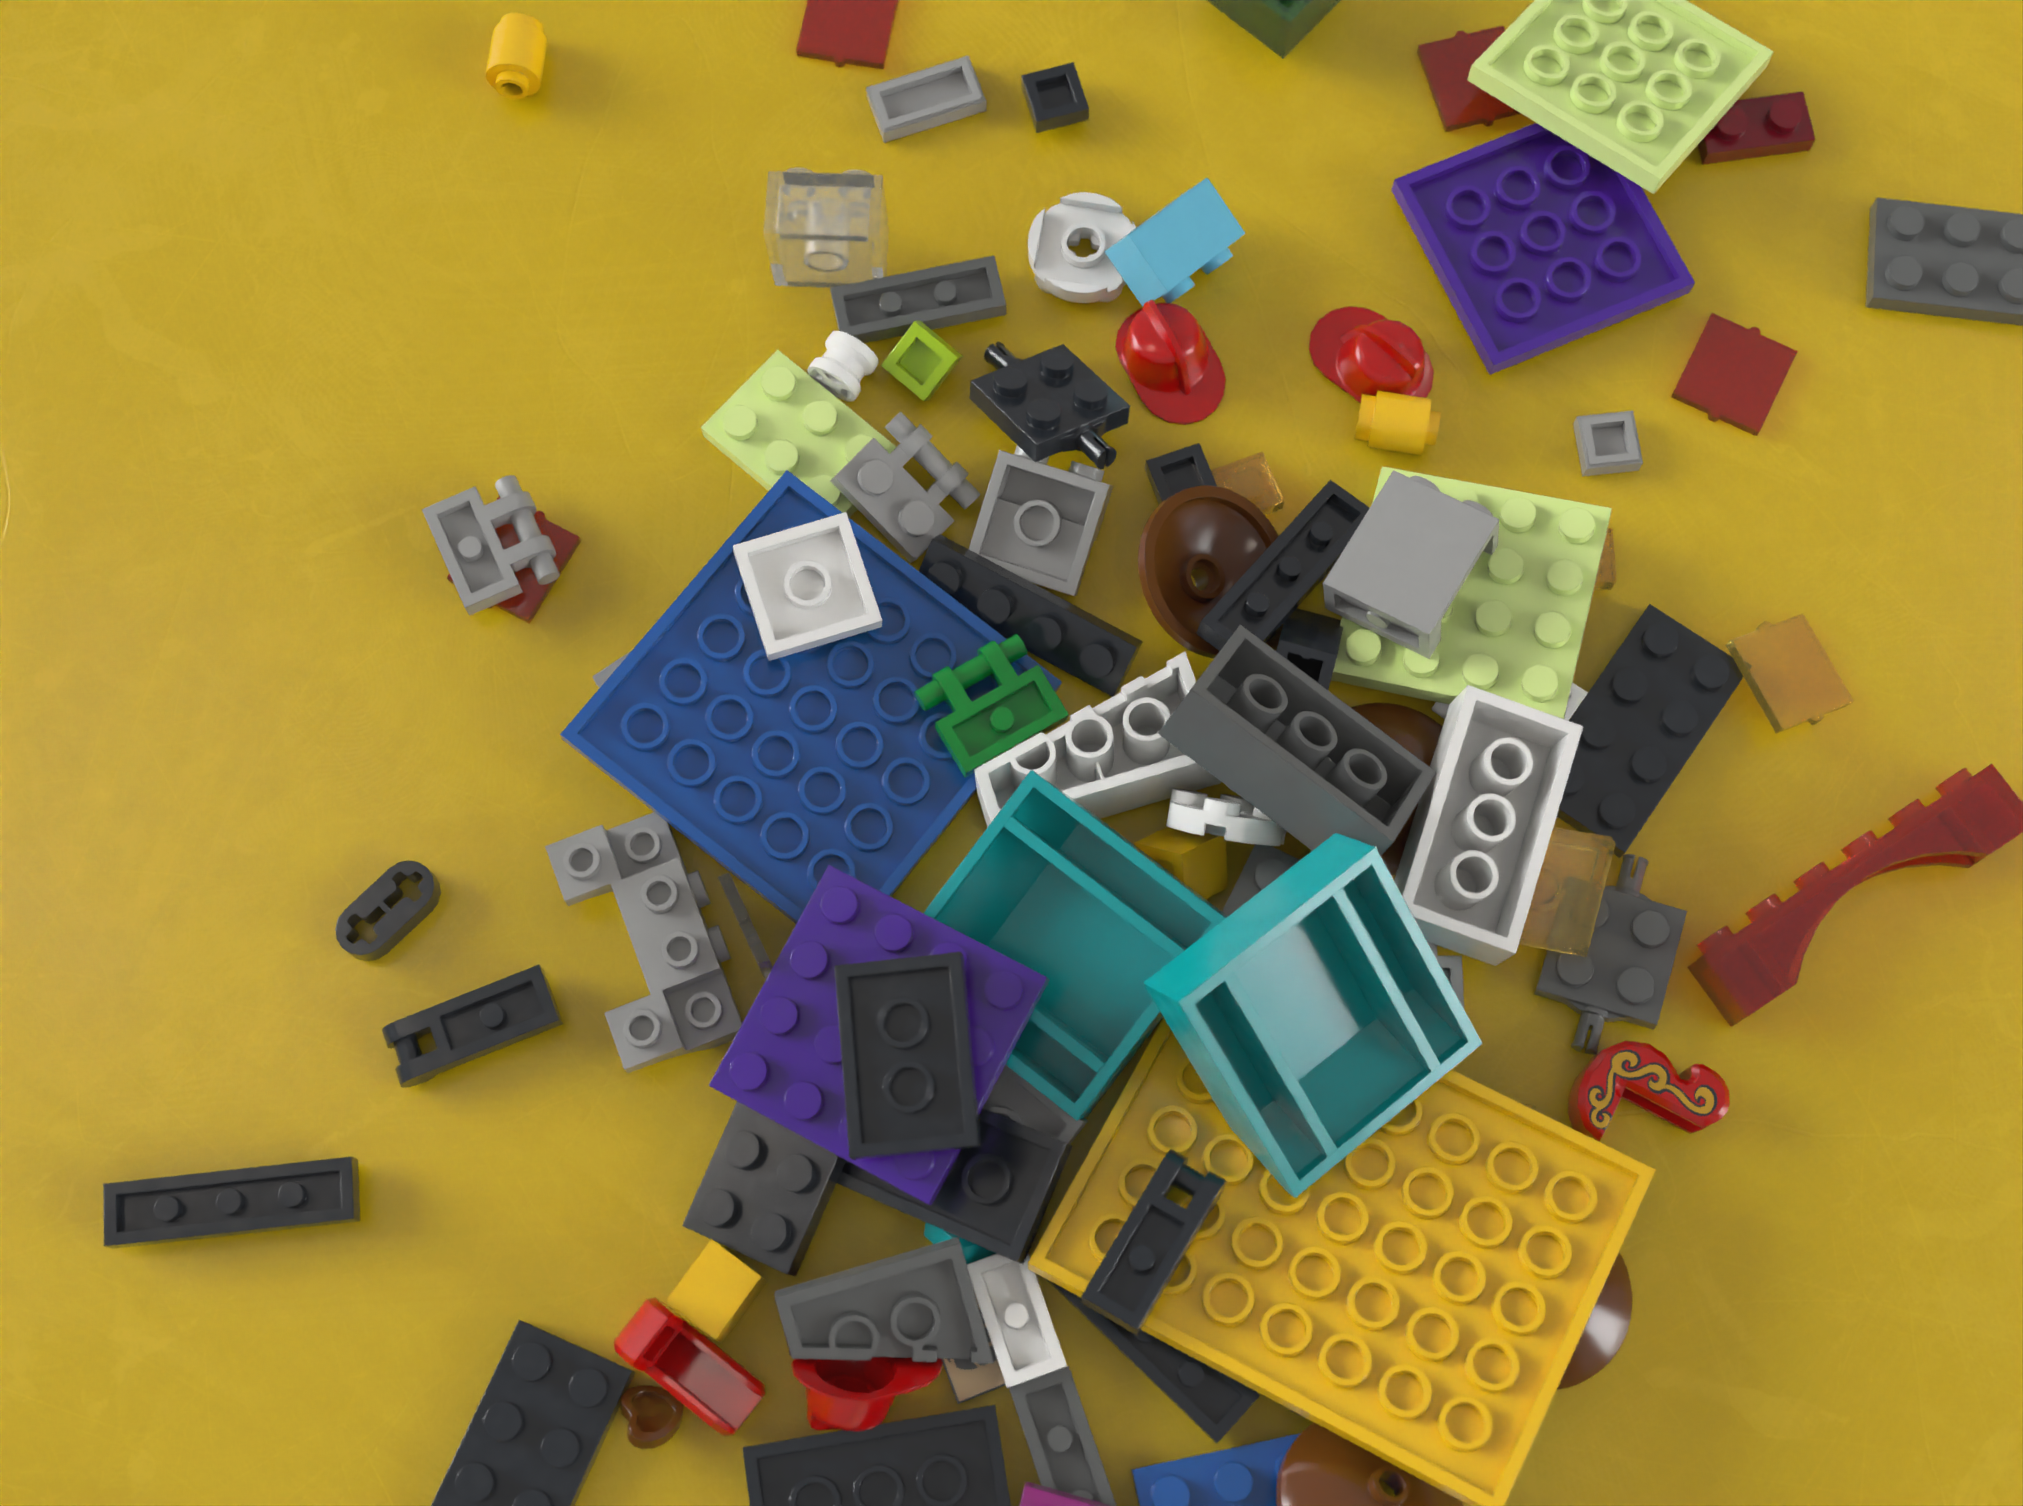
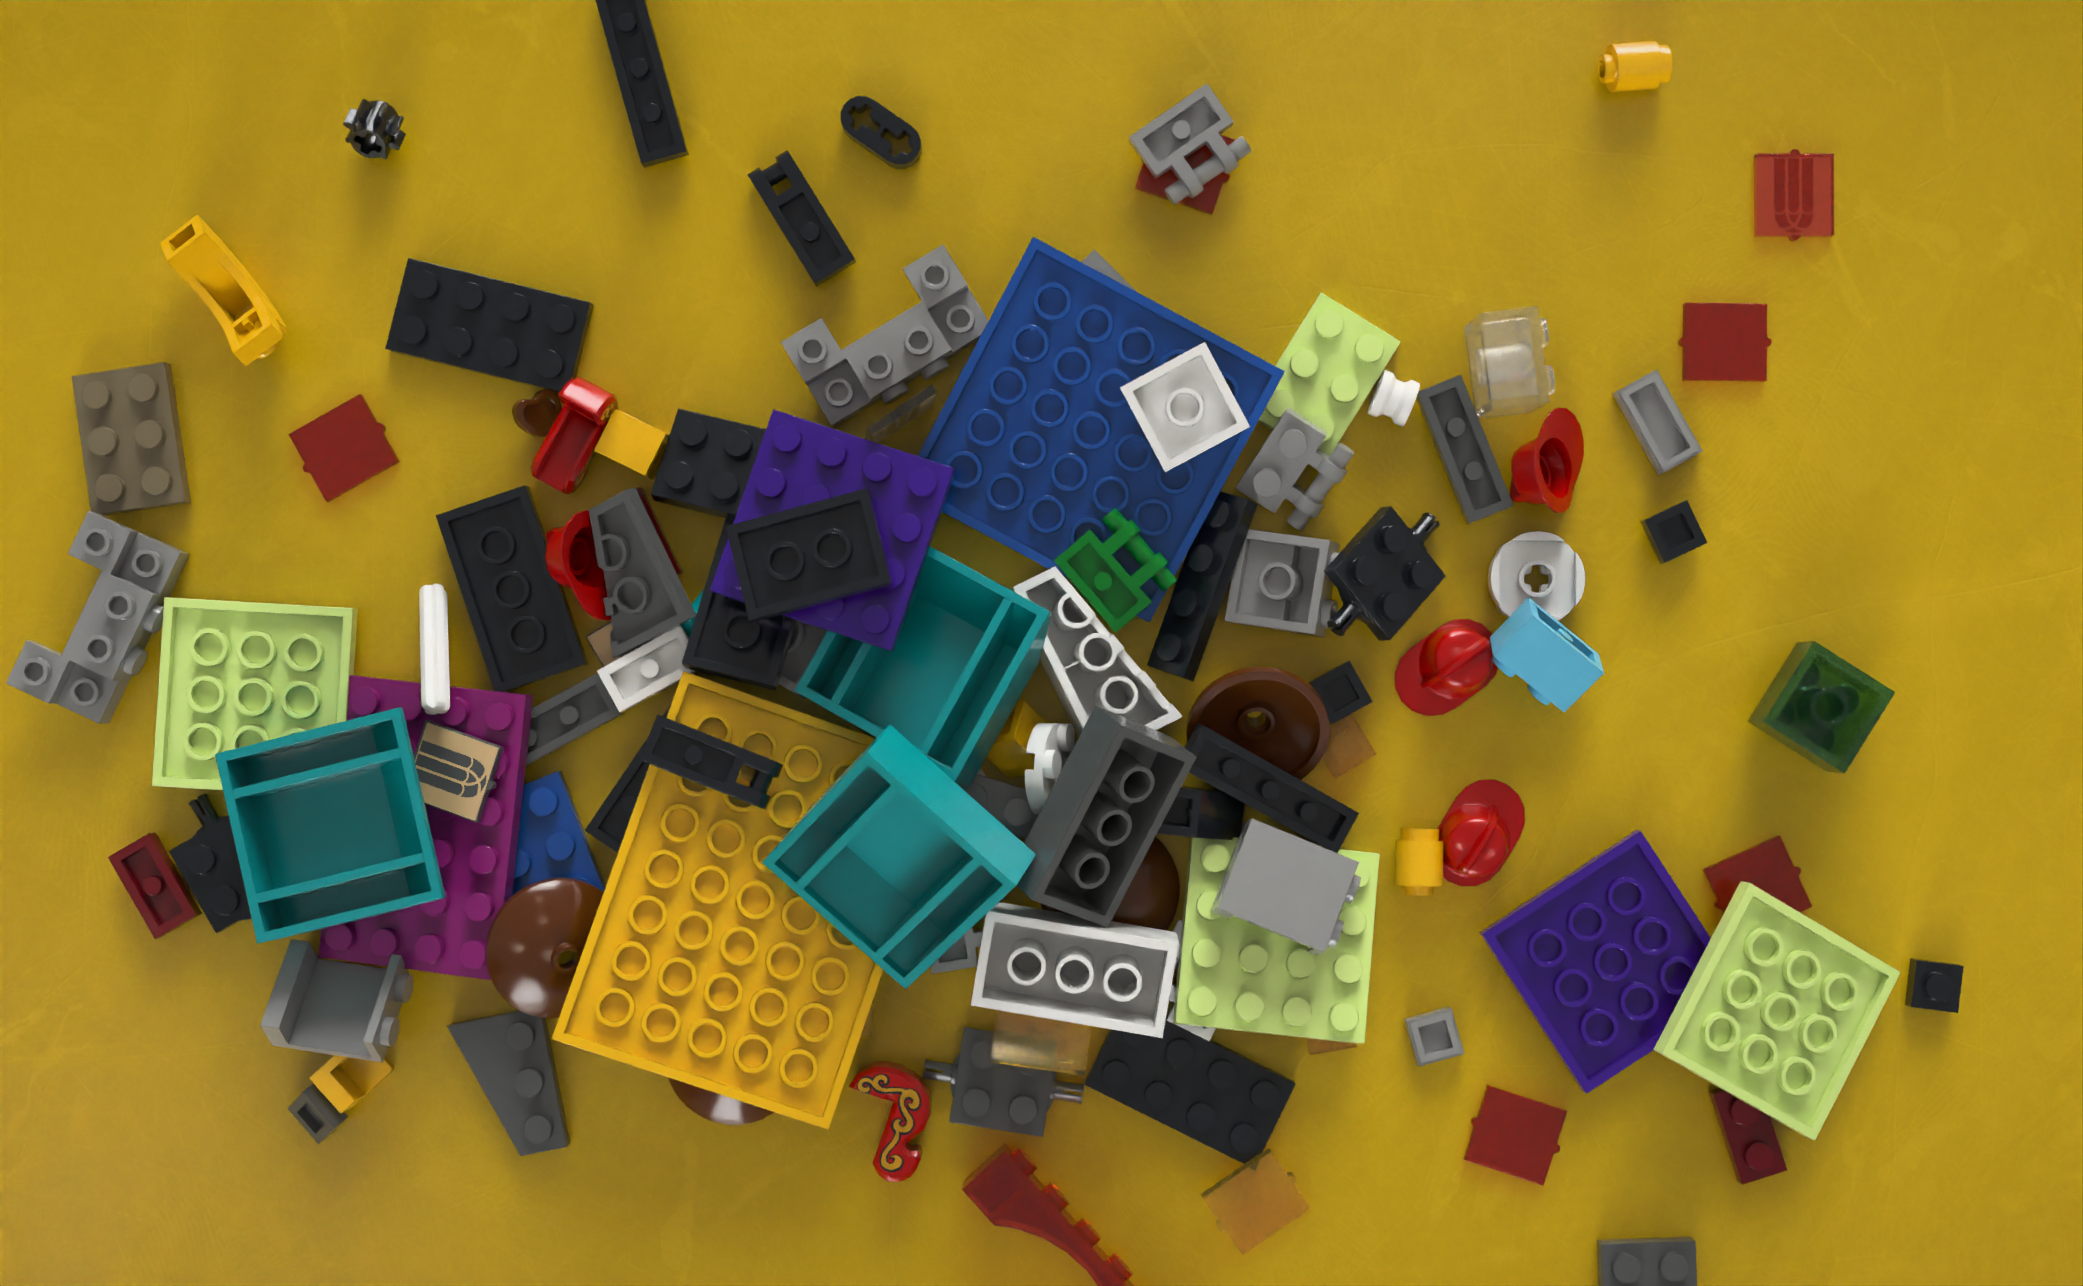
camera: 80 degrees right, 15 degrees up
(921, 360) = (1409, 462): lime plate -> none
(954, 216) = (1549, 465): none -> red piece

